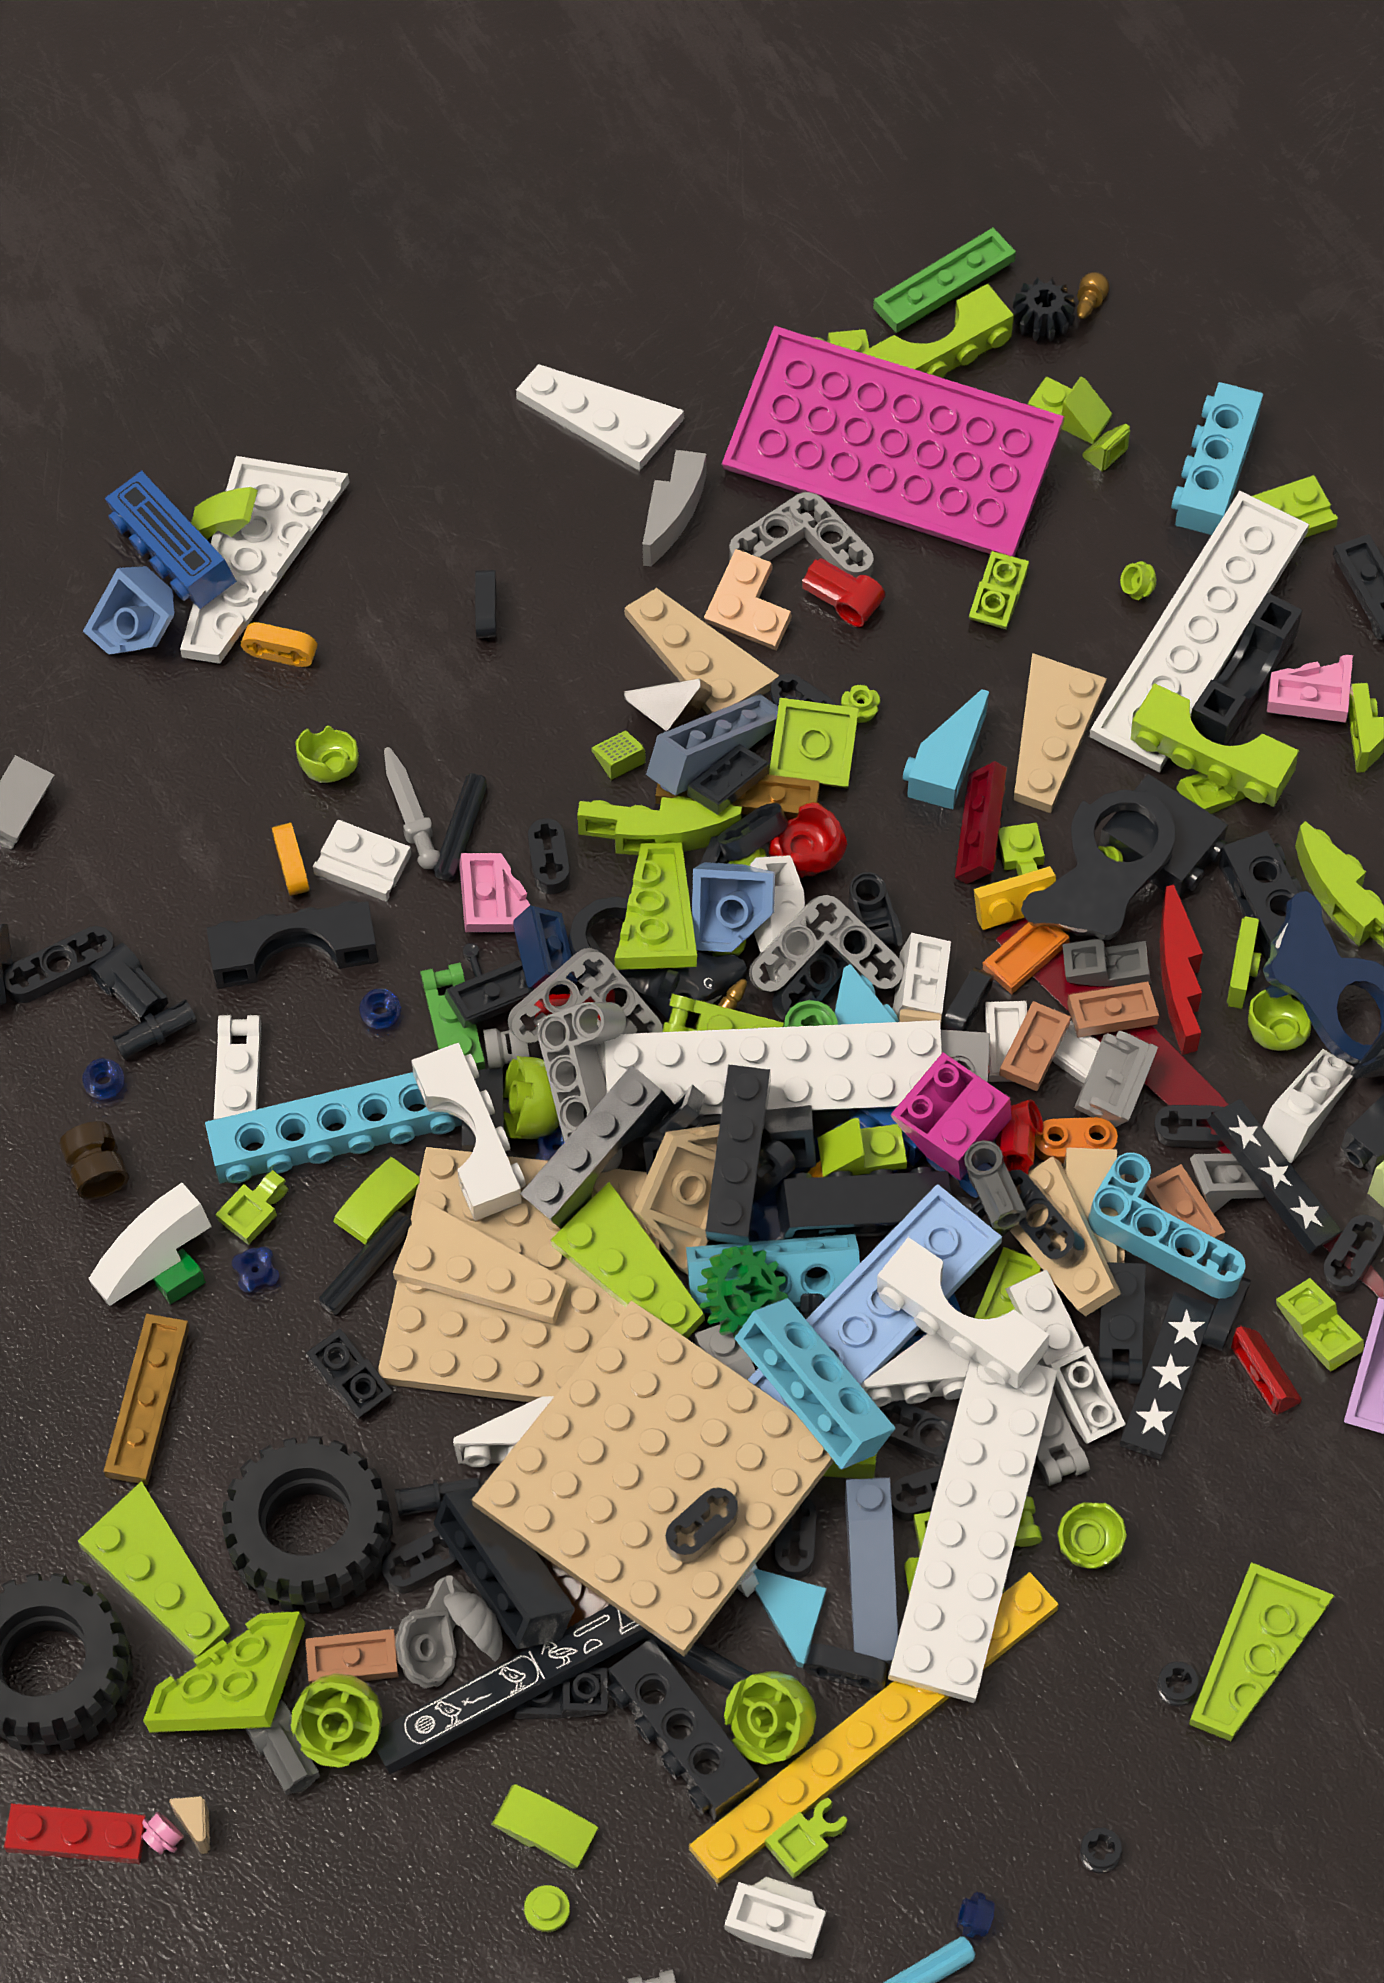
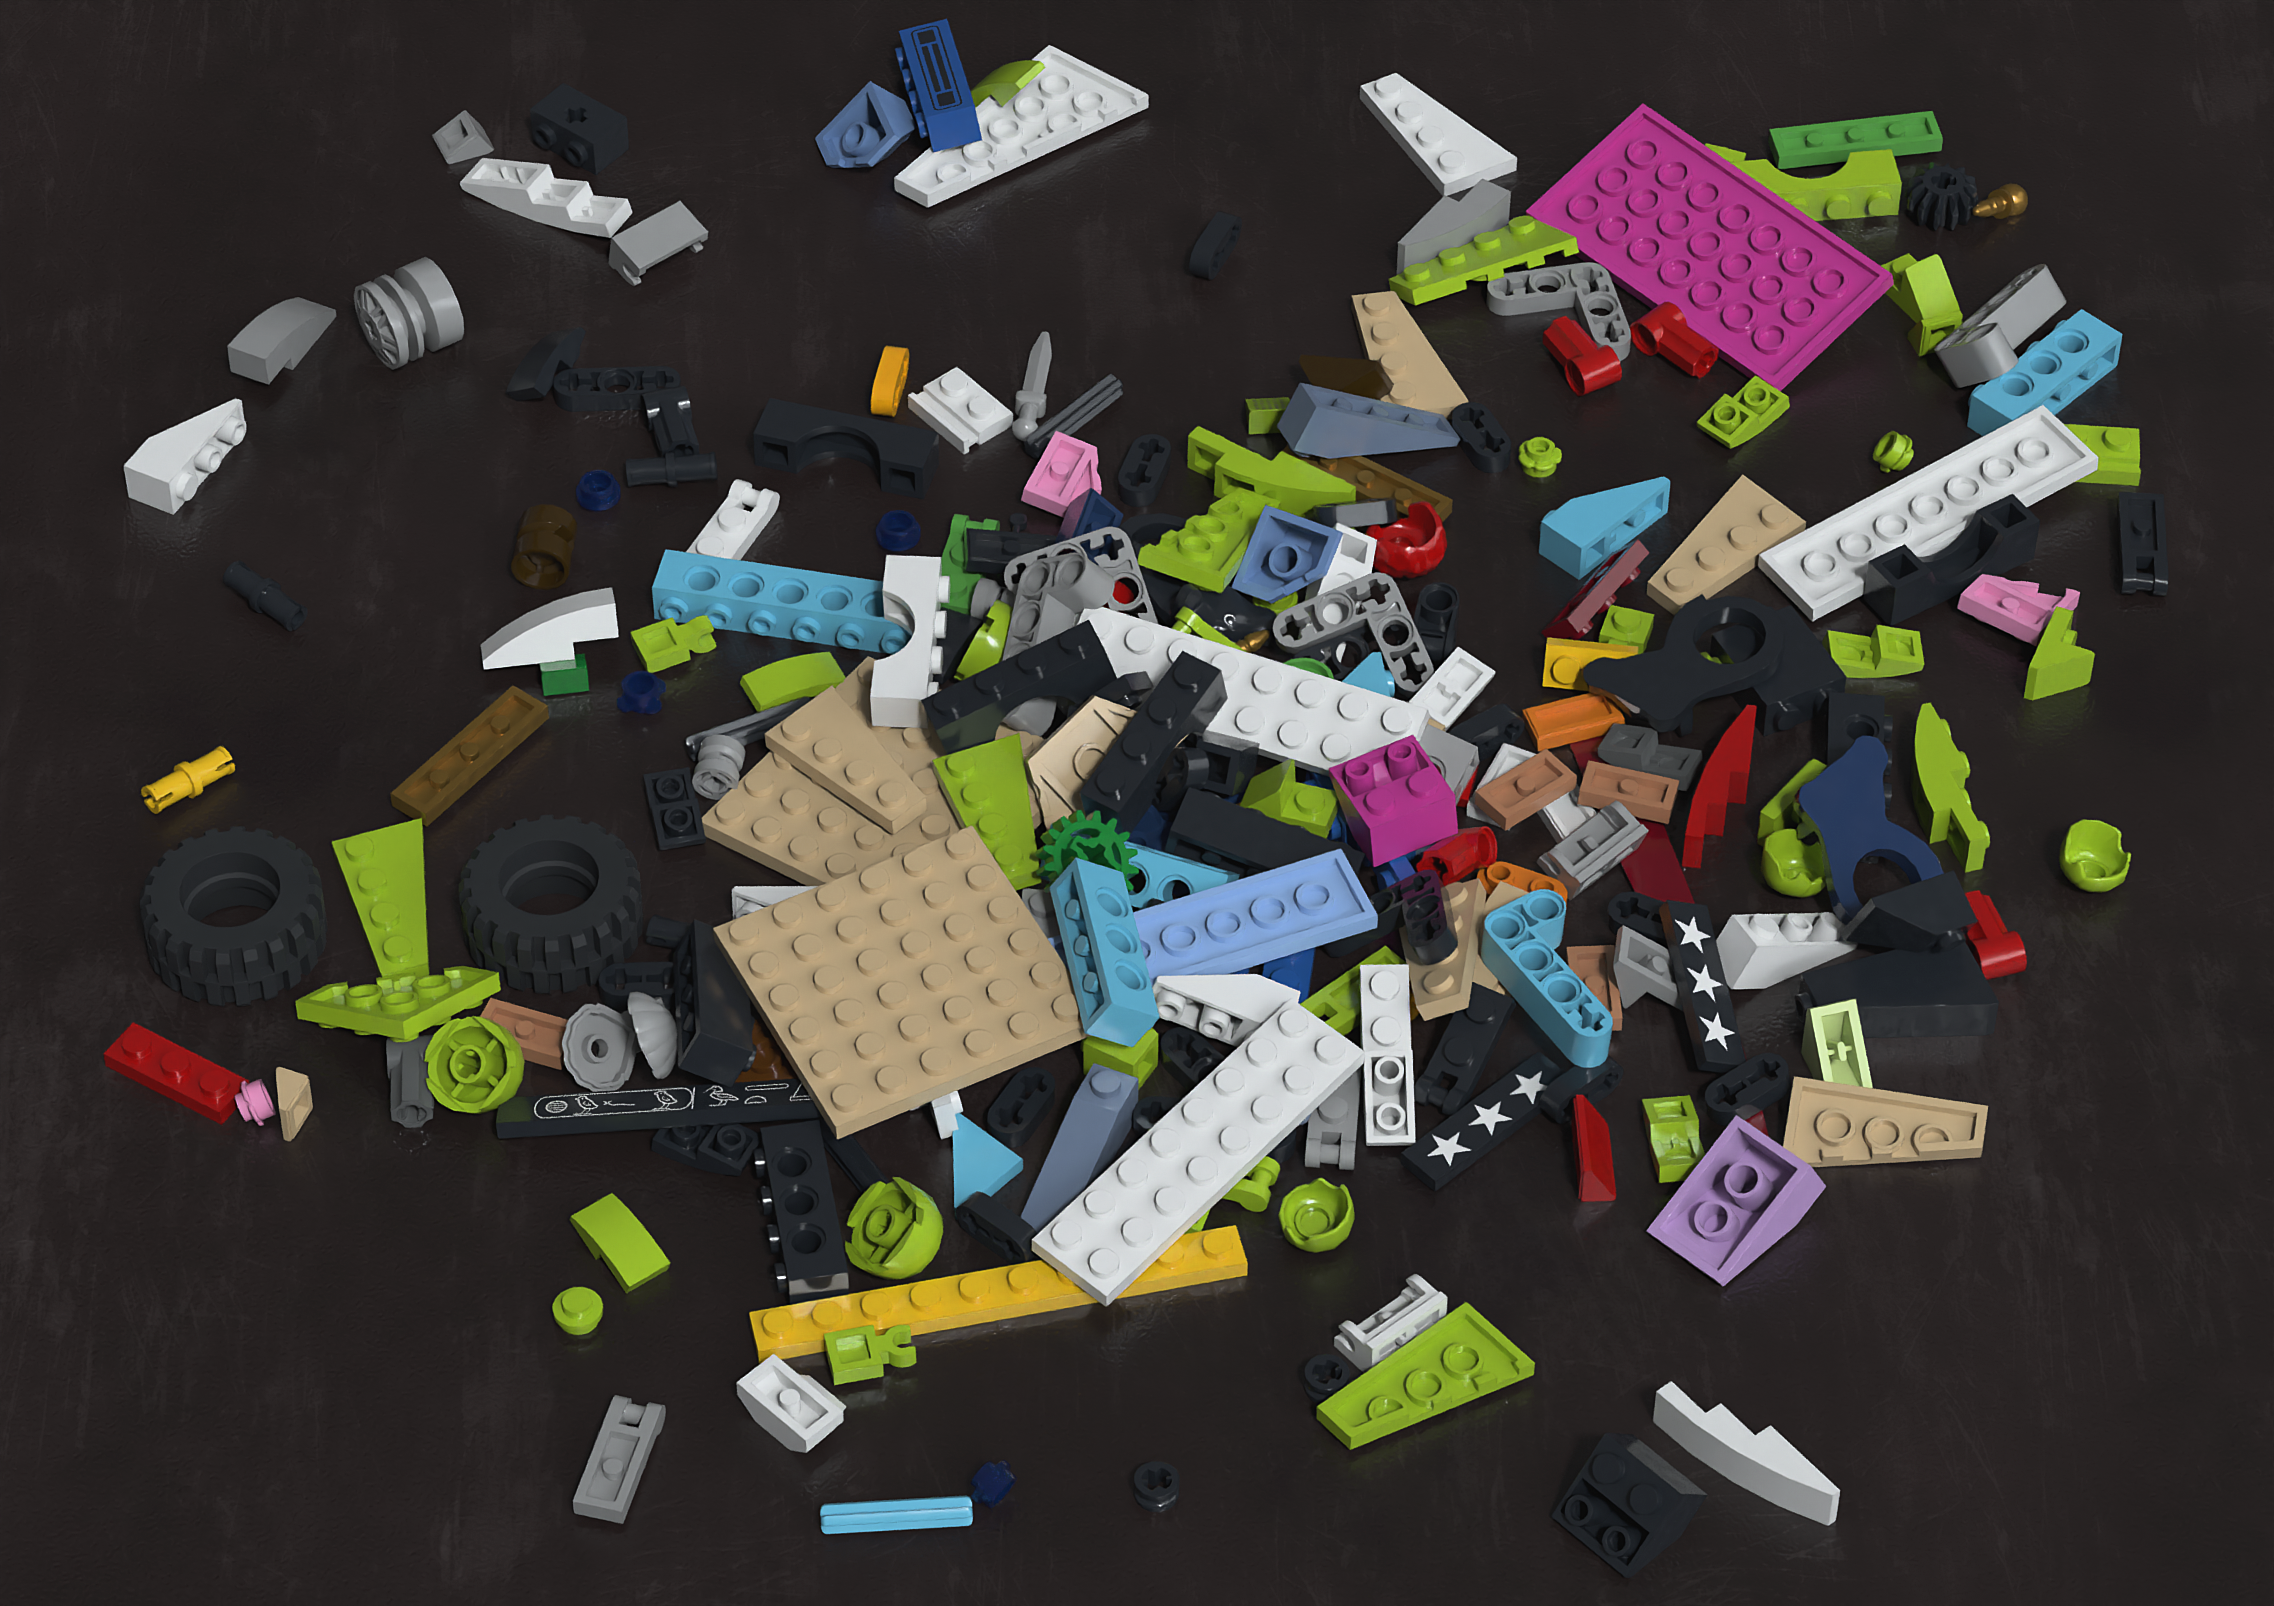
camera: 25 degrees right, 15 degrees down
(279, 644) = (992, 208): light orange beam -> none
(327, 754) = (978, 311): lime hair -> none
(365, 1316) = (715, 772): none -> light grey wheel
(709, 1531) = (917, 1023): black beam -> none
(714, 525) = (1483, 259): none -> lime wing
(728, 779) = (1357, 459): black plate -> none
(738, 605) = (1469, 332): light nougat plate -> none
(814, 742) = (1468, 464): lime plate -> none
(898, 538) = (1667, 332): none -> red piece
(994, 1185) = (1395, 866): dark grey piece -> none
(1003, 1345) = (1314, 994): white arch -> none
(1155, 447) = (1986, 340): none -> light grey beam
(1201, 1609) = (1392, 1325): none -> white hinge
(1254, 768) = (1905, 637): lime arch -> none

